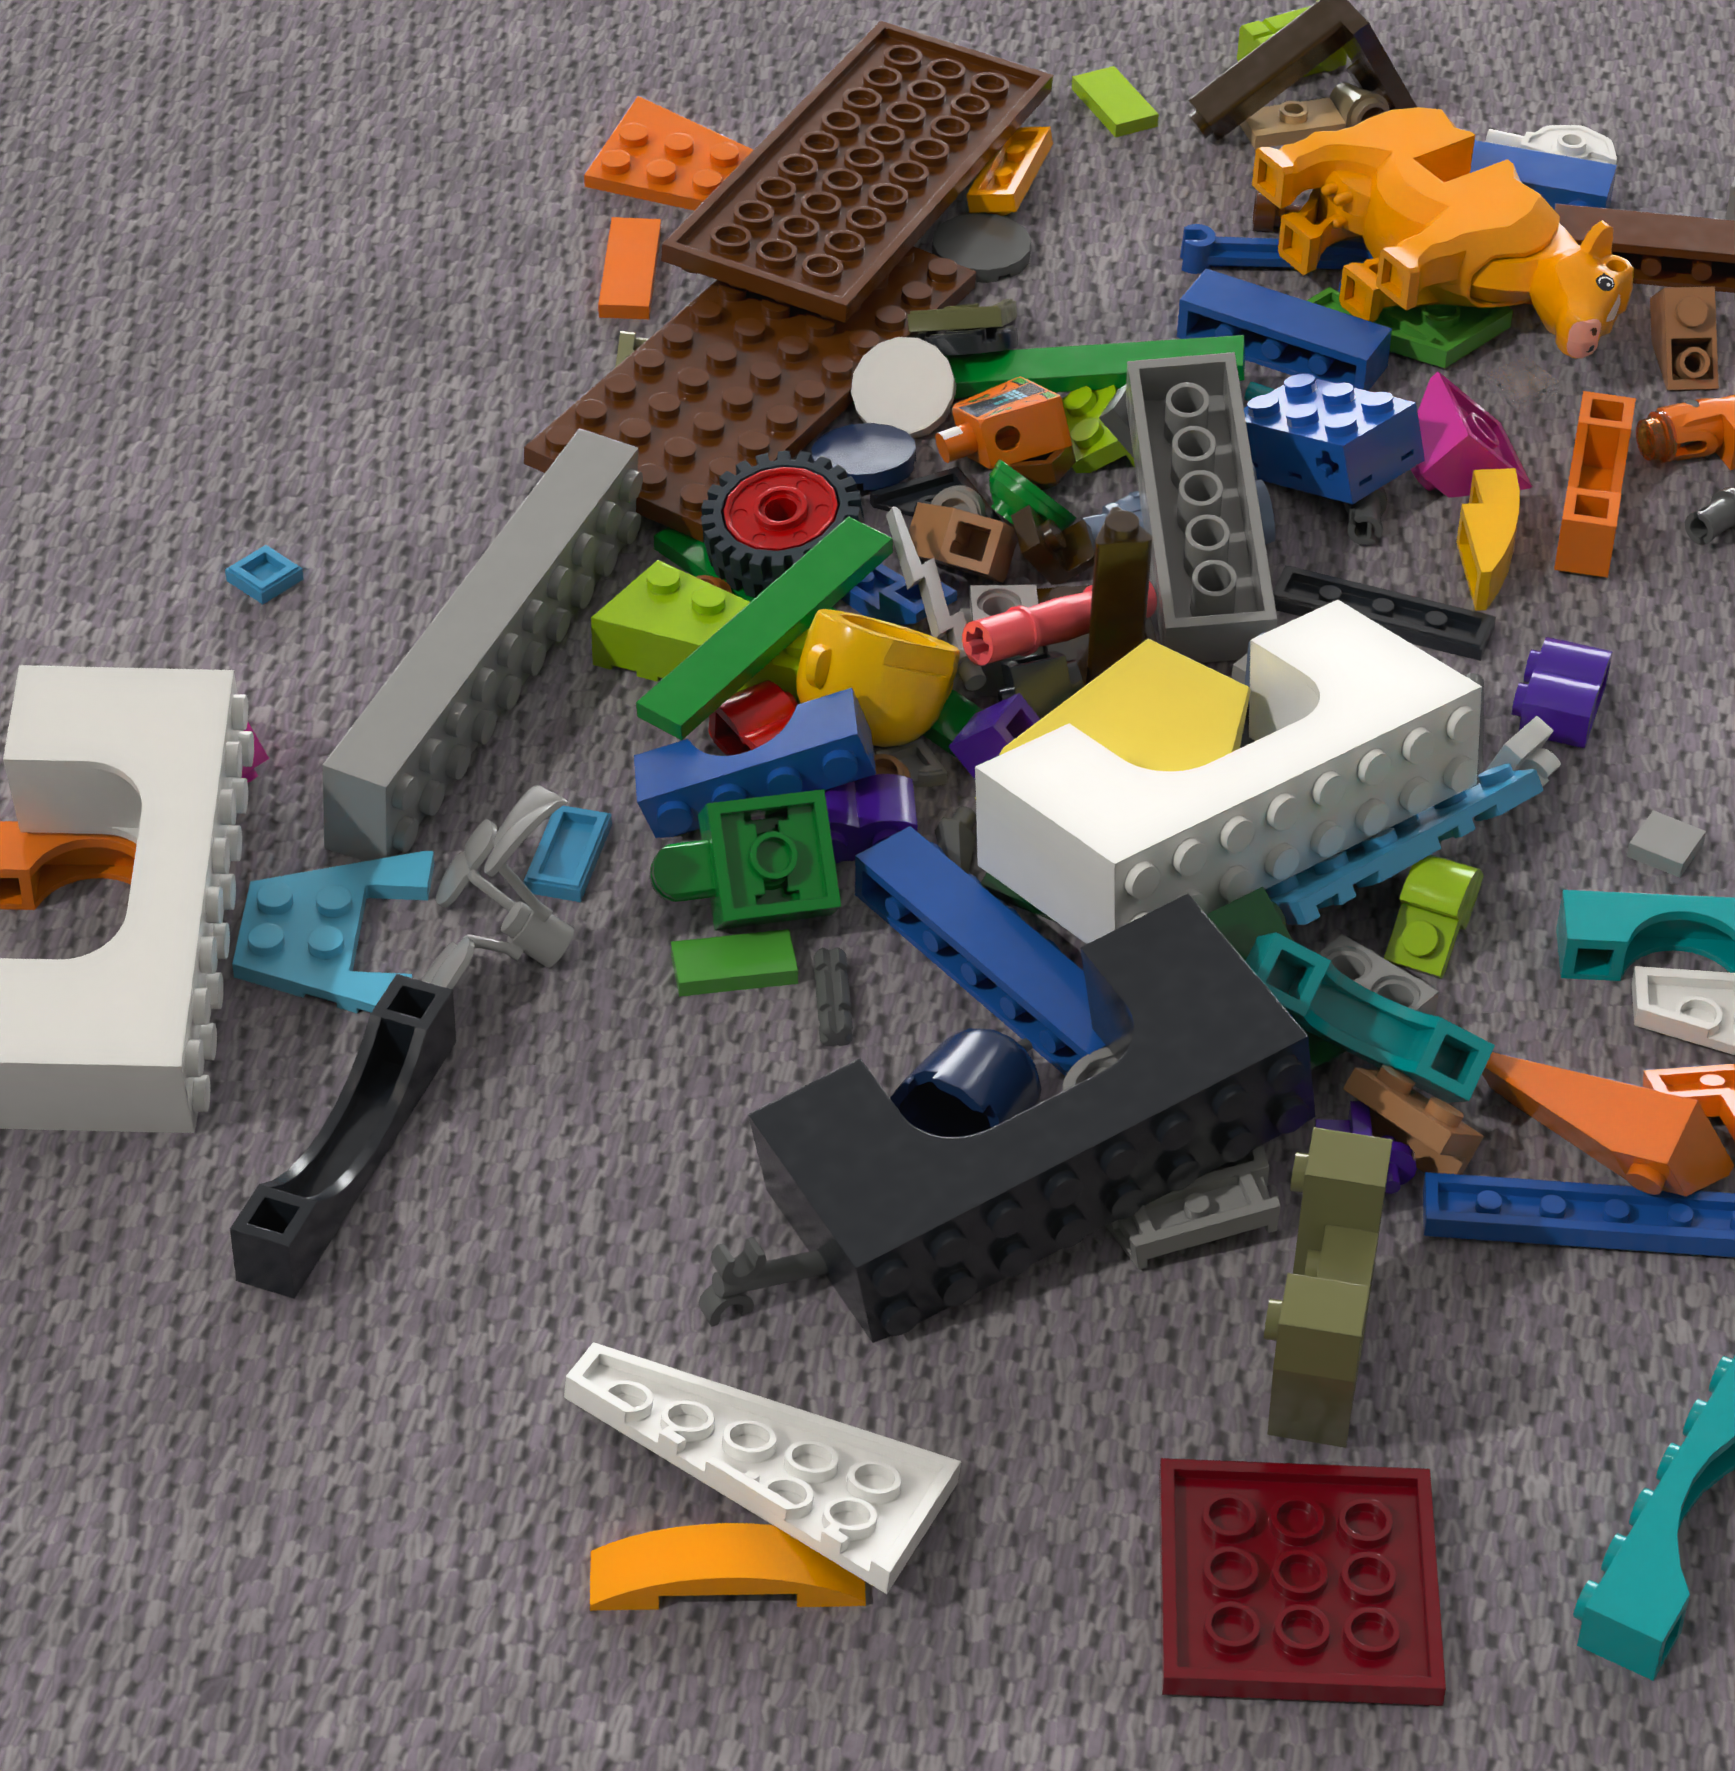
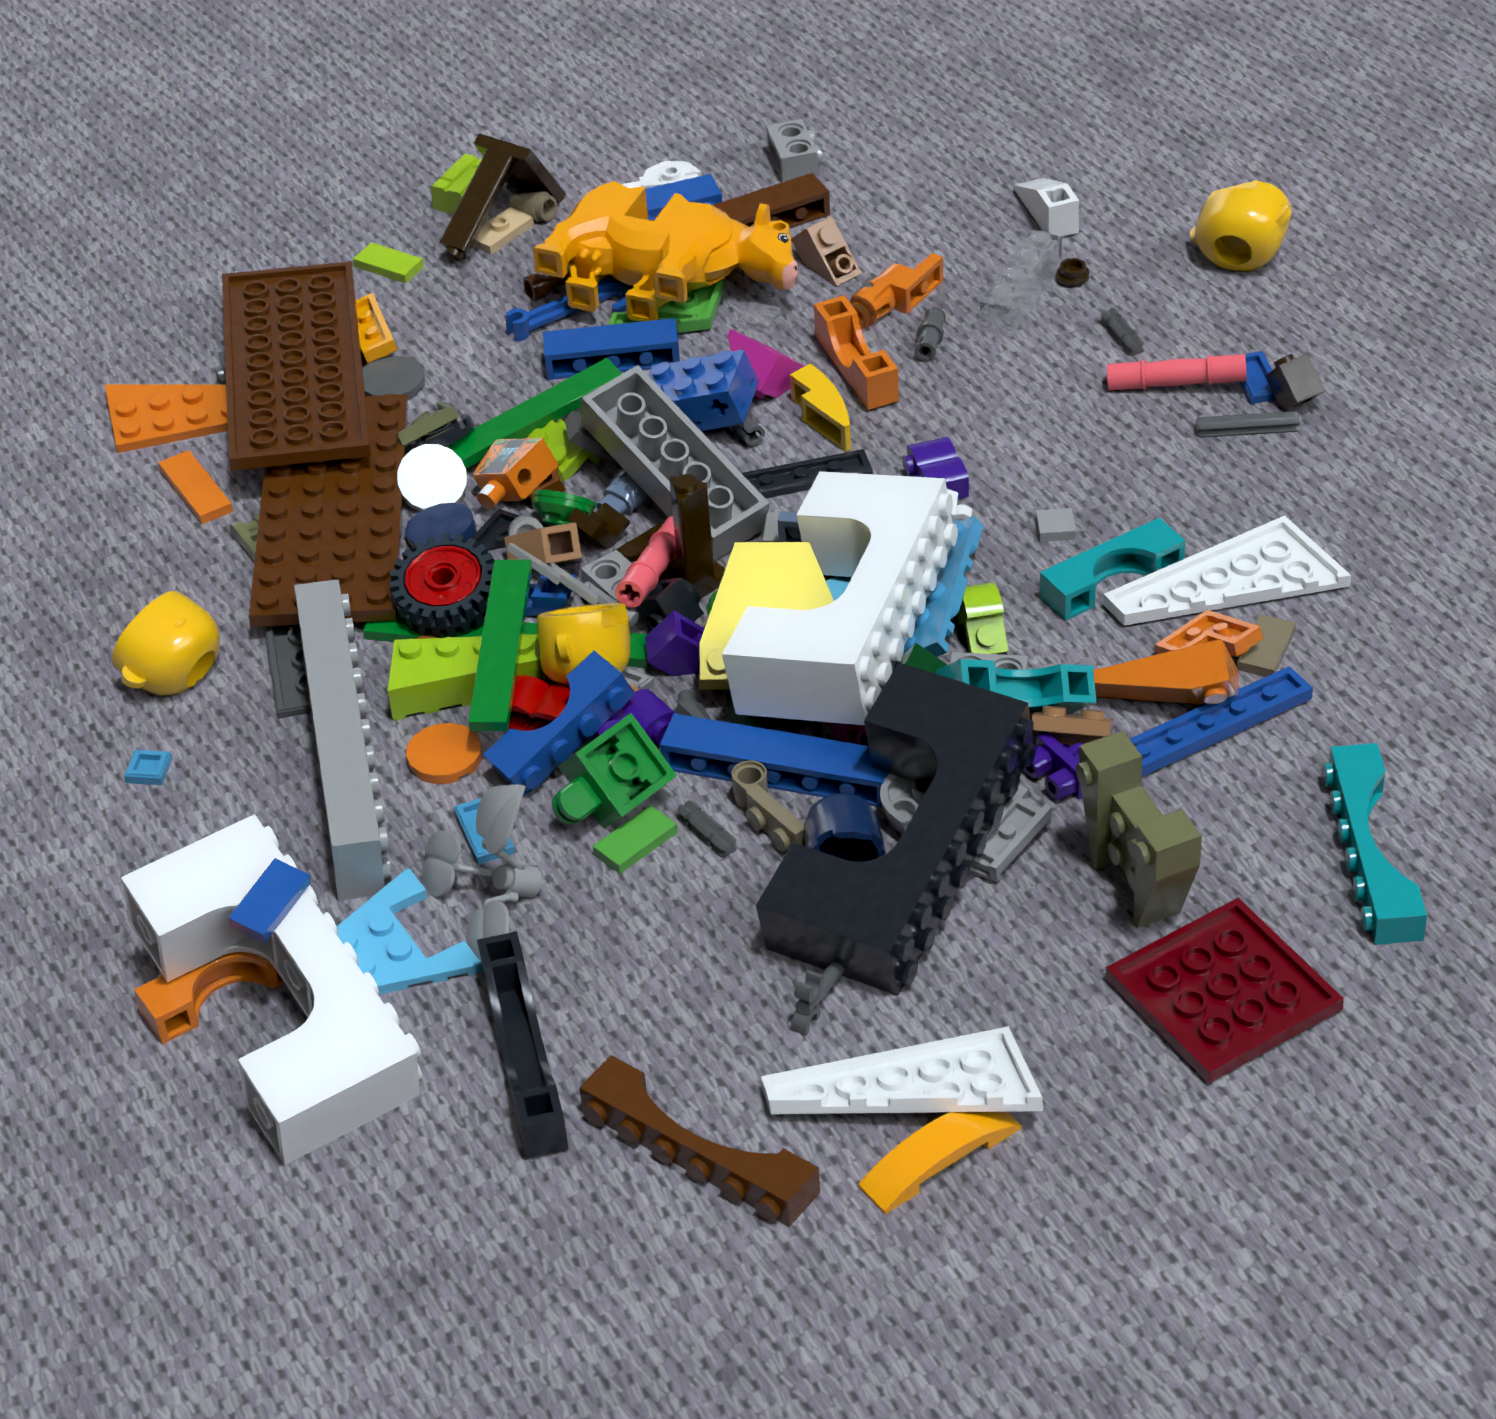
camera: 30 degrees left, 0 degrees up
(158, 783) = (269, 900): none -> blue tile
(399, 435) = (167, 646): none -> yellow piece
(480, 1484) = (773, 1184): none -> reddish brown arch
(604, 734) = (444, 753): none -> orange tile
(928, 983) = (761, 809): none -> dark tan plate

